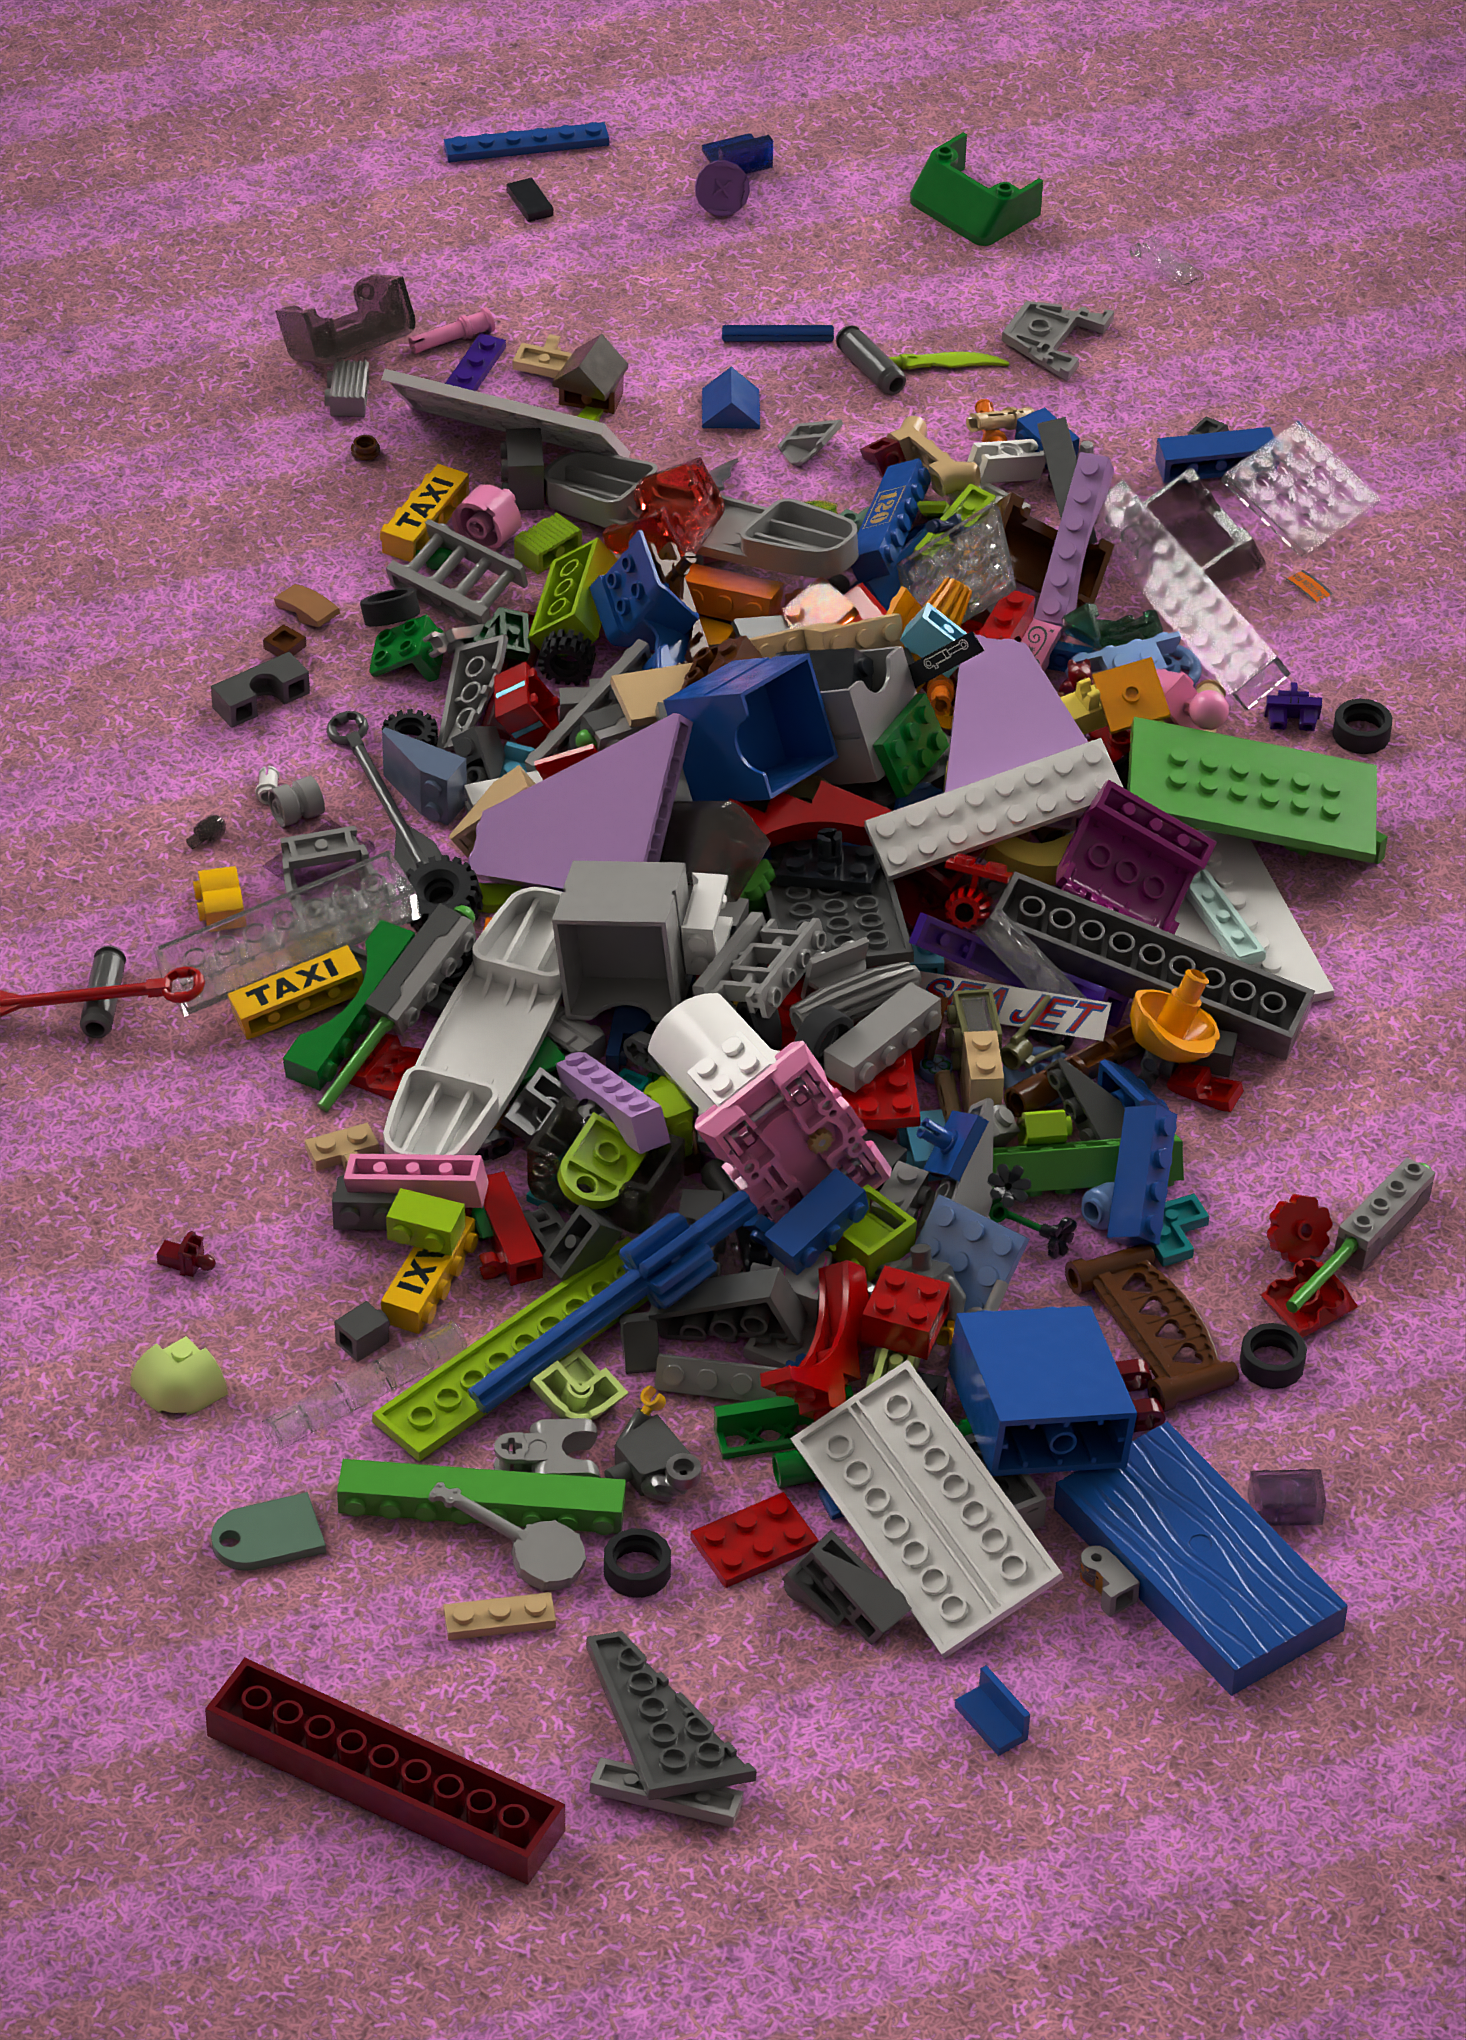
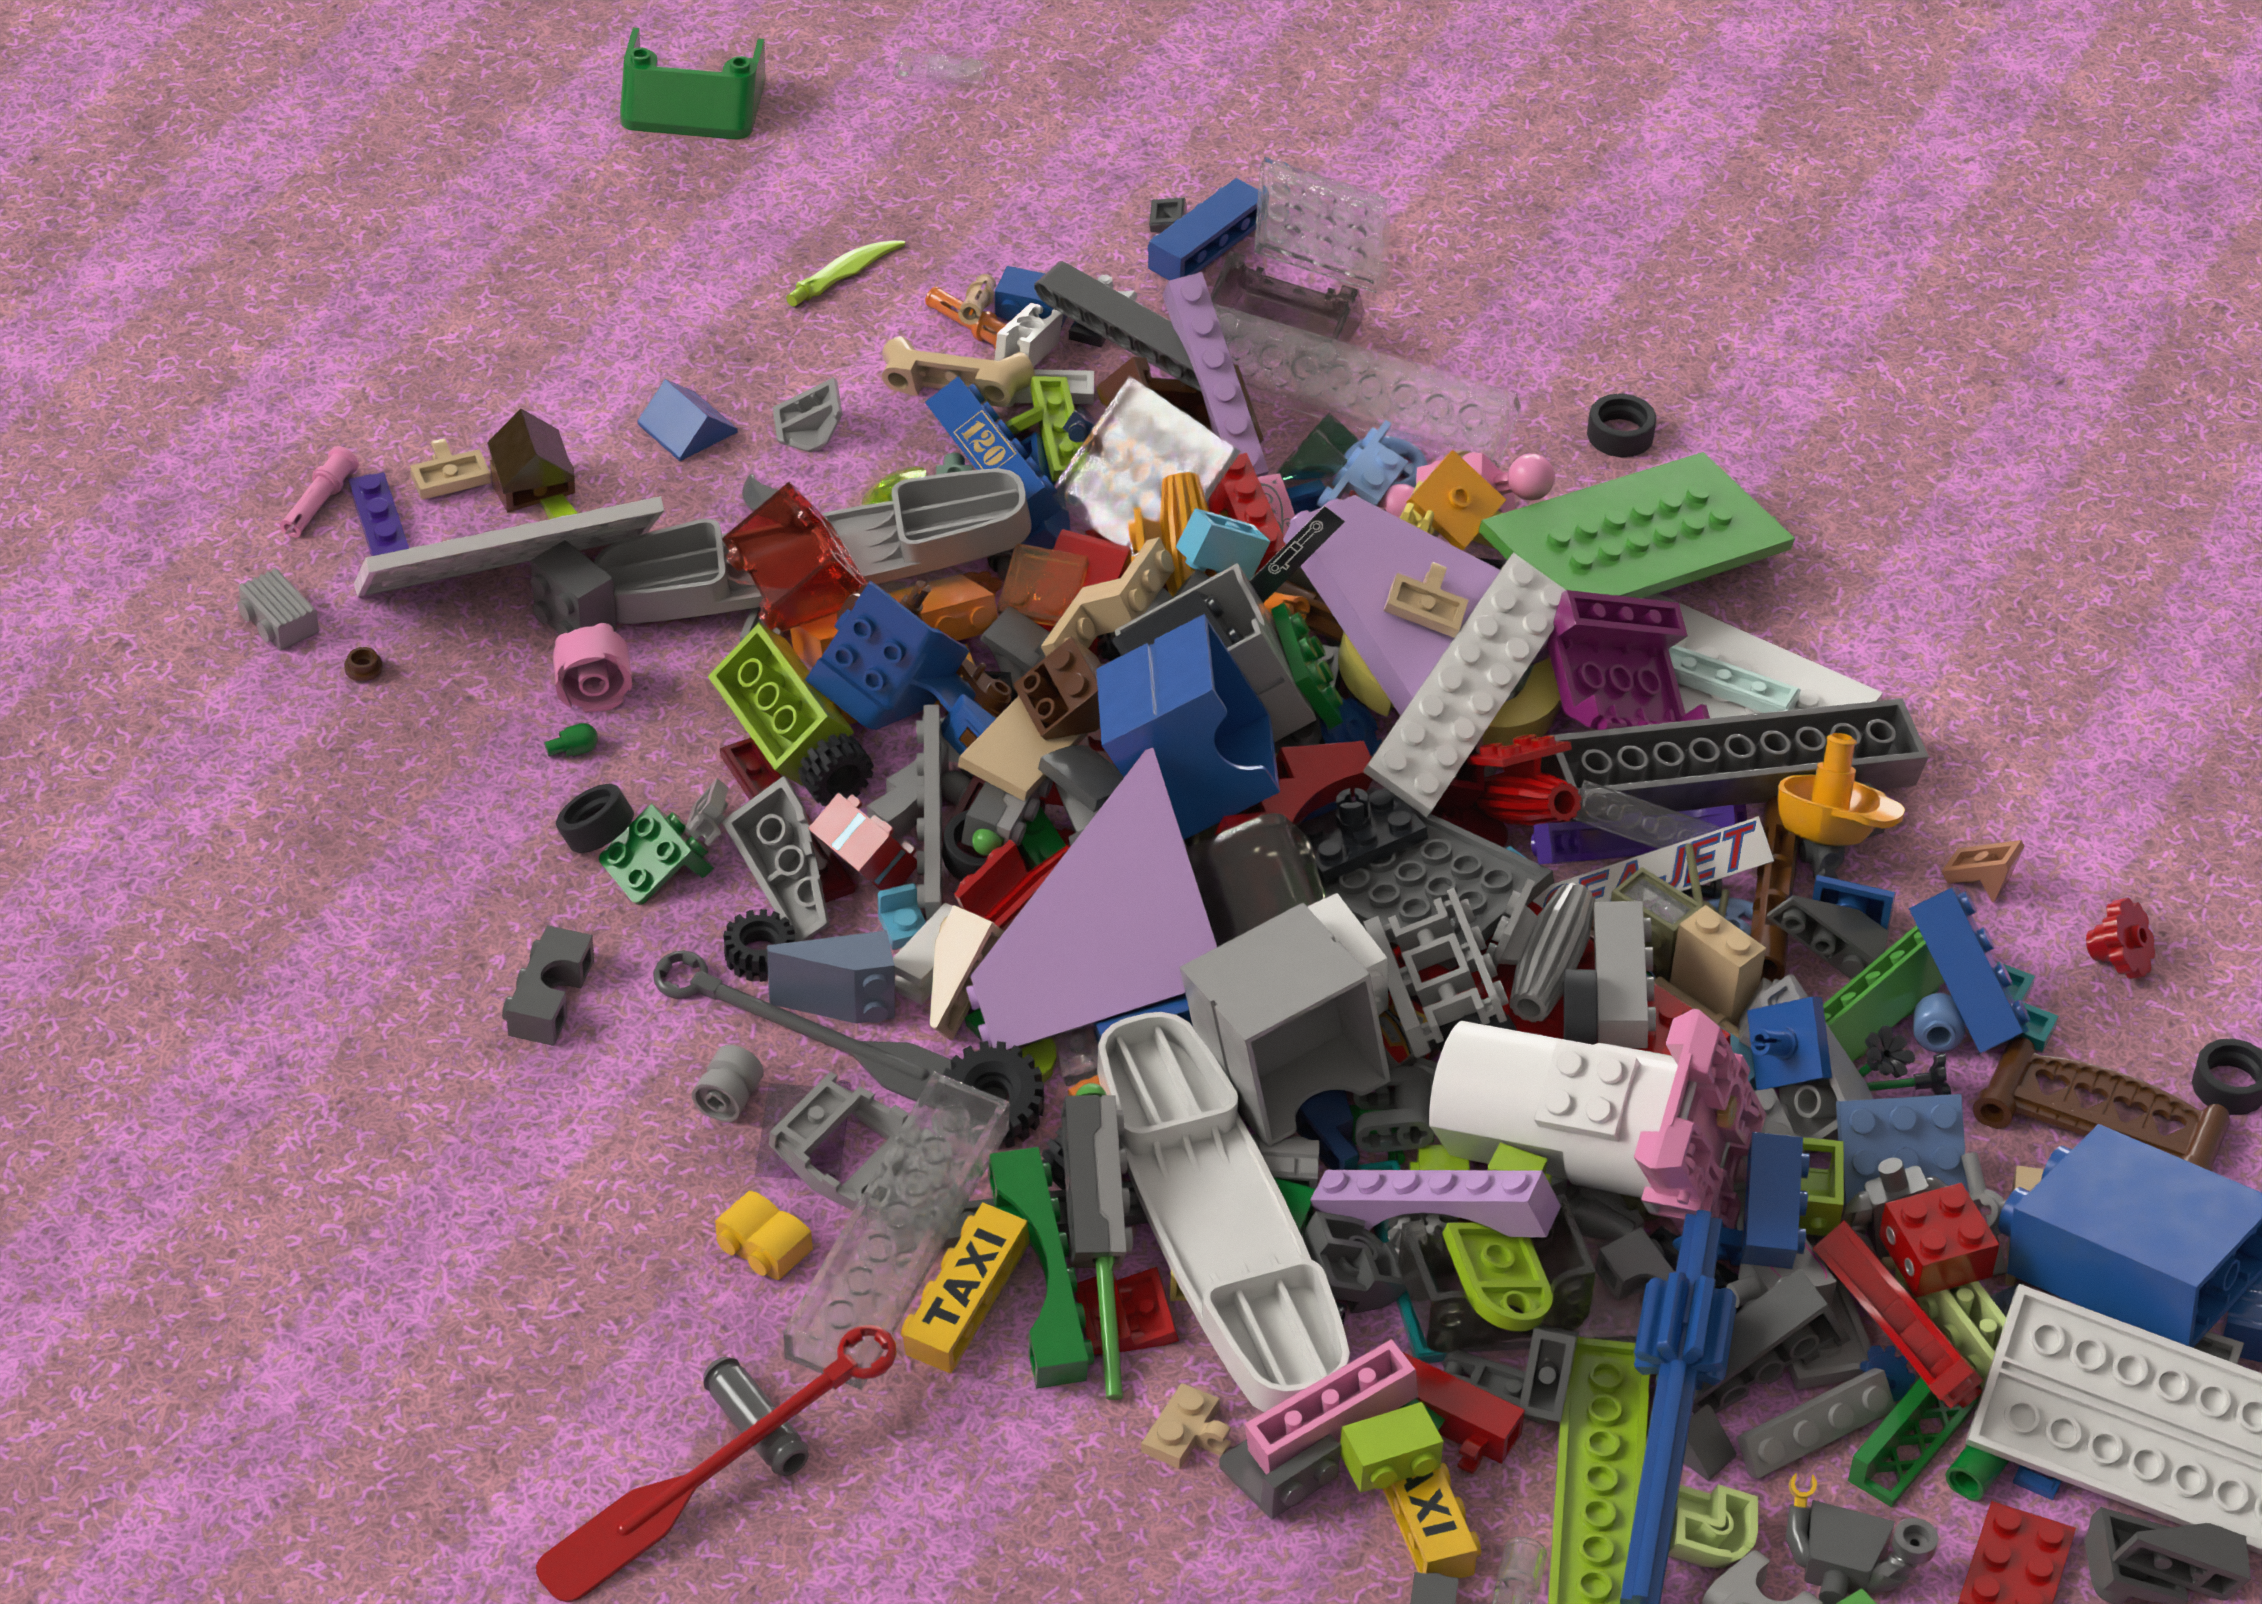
camera: 40 degrees left, 0 degrees up
(208, 829) = (663, 1172): clear smoke cylinder -> none
(266, 782) = (672, 1085): white pin -> none
(283, 641) = (517, 920): reddish brown plate -> none
(308, 604) = (501, 865): medium nougat slope -> none
(381, 318) = (242, 520): clear smoke windscreen -> none
(433, 500) = (509, 698): yellow brick -> none
(453, 600) = (632, 779): light grey fence -> none
(482, 752) = (860, 913): dark grey slope -> none
(514, 626) = (743, 775): dark green wing -> none
(526, 142) = (166, 254): blue plate -> none
(529, 199) = (238, 312): black tile -> none
(546, 542) = (670, 662): lime brick -> none
(722, 188) = (441, 201): medium lavender tile -> none
(744, 150) = (410, 162): clear blue bracket -> none
(777, 333) = (649, 324): blue axle -> none
(871, 360) = (777, 304): dark grey axle -> none
(883, 453) = (900, 391): dark red bracket -> none
(1007, 739) = (1426, 602): none -> tan plate
(1043, 327) = (905, 195): light grey wing -> none
(1044, 1127) = (1827, 974): lime brick -> none
(1198, 1085) = (1884, 855): red slope -> none
(1263, 1135) = (1988, 863): none -> nougat slope
(1293, 705) = (1542, 435): dark purple hips -> none
(1310, 586) = (1416, 316): orange sticker -> none
(1325, 1306) = (2197, 1000): red slope -> none
(1373, 1224) = (2181, 894): piece -> none

